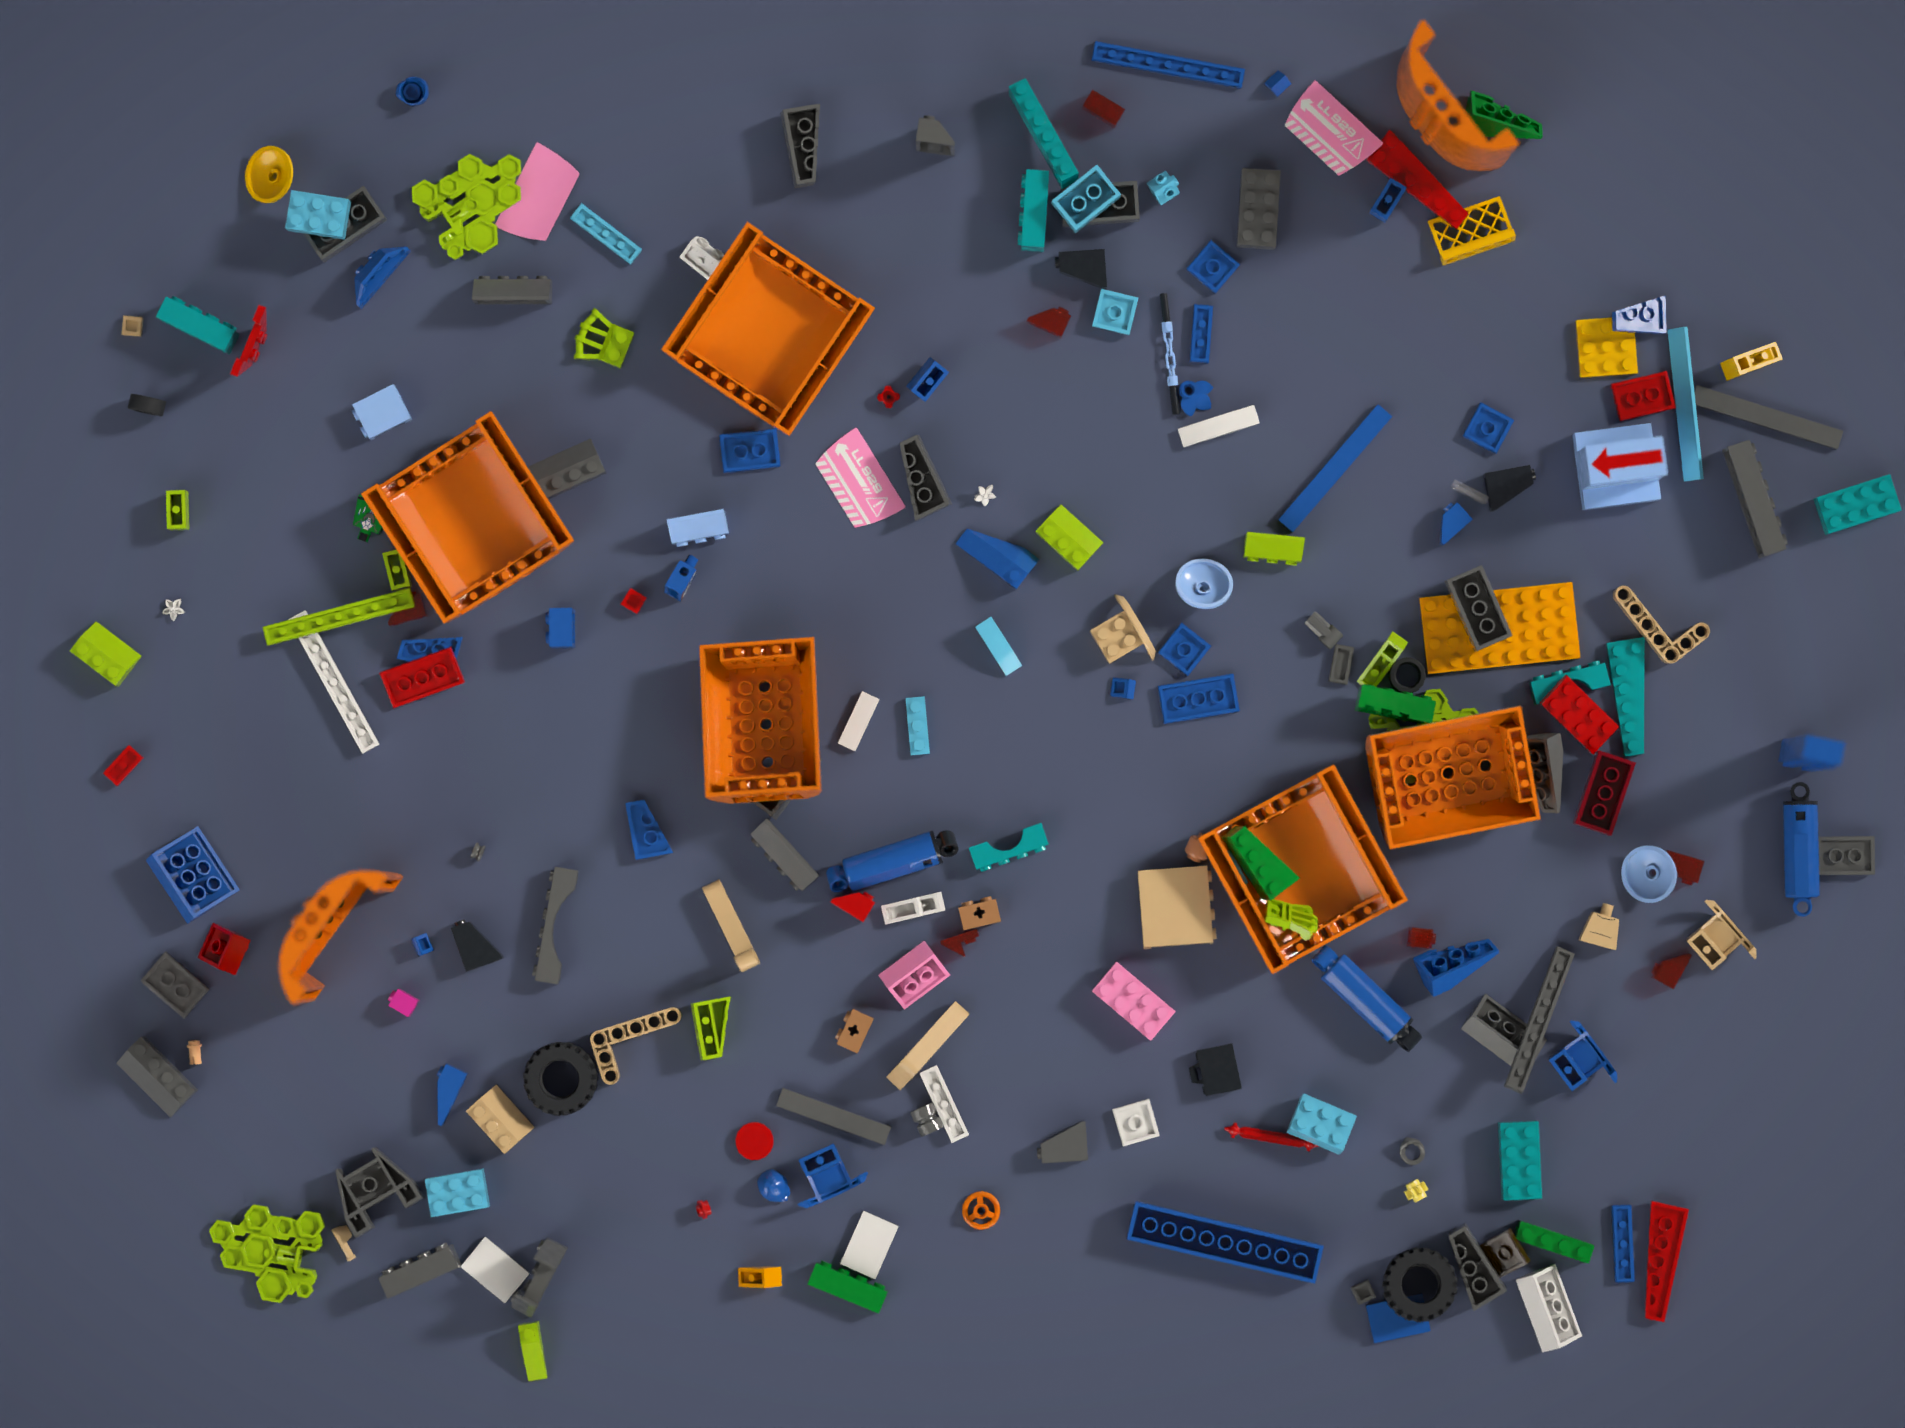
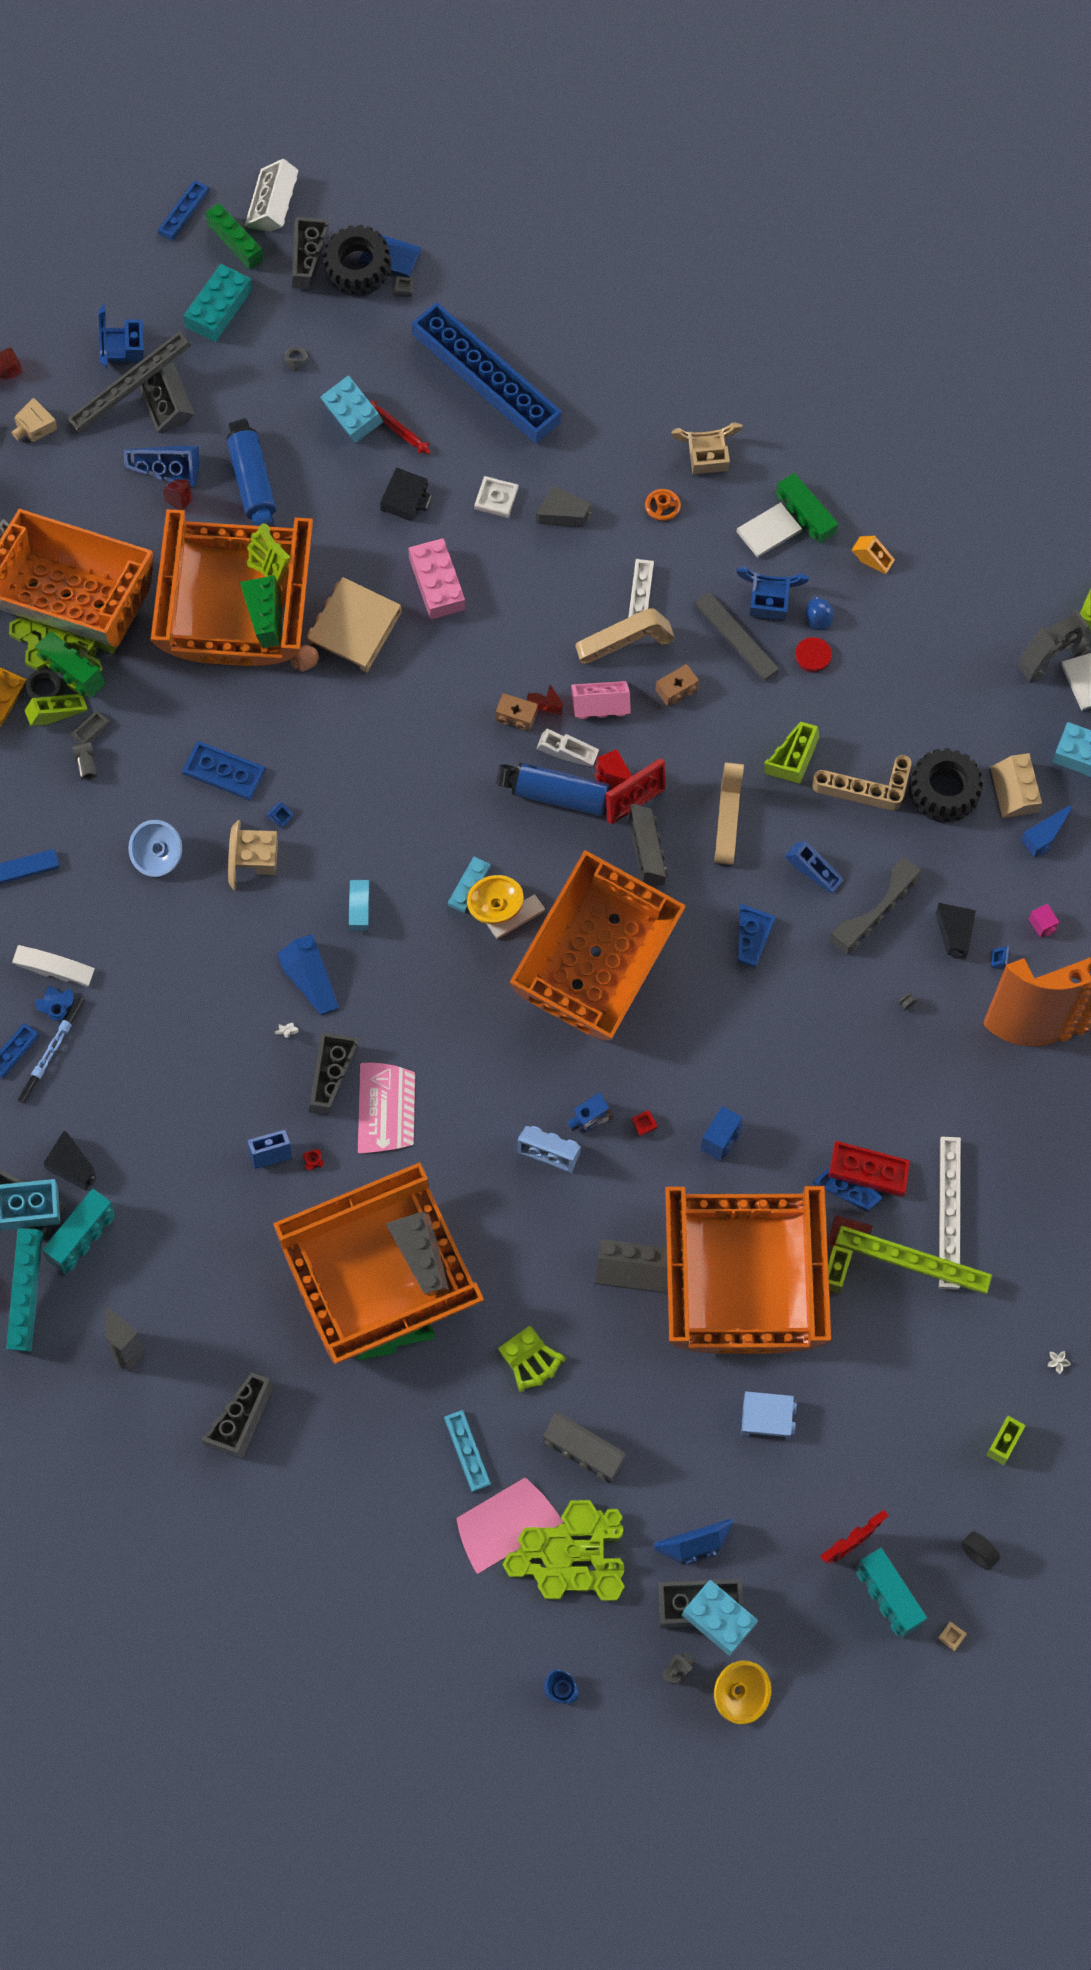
camera: 155 degrees left, 20 degrees down
(330, 160) = (678, 1668): none -> dark grey hips
(366, 520) = (840, 1332): green torso -> none
(630, 929) = (812, 865): none -> blue slope
(702, 256) = (394, 1374): white bracket -> none
(703, 1209) = (887, 627): red plate -> none
(741, 363) = (420, 1249): none -> dark grey wedge
(750, 450) = (462, 1188): blue tile -> none
(823, 895) = (636, 790): none -> red tile
(895, 723) = (494, 892): none -> yellow dish
(926, 1119) = (662, 588): dark grey wheel -> none
(974, 1292) = (708, 449): none -> tan piece
(1032, 839) = (435, 742): teal arch -> none
(1052, 321) = (130, 1135): clear red slope -> none
(1069, 537) = (240, 953): lime slope -> none
(1115, 312) = (72, 1110): medium azure plate -> none
(1184, 649) = (208, 814): blue tile -> none
(1273, 548) = (78, 843): lime slope -> none
(1416, 1190) = (312, 327): light yellow gear -> none
(1505, 1253) = (276, 247): dark brown tile -> none
(1664, 1245) = (154, 189): red wing -> none

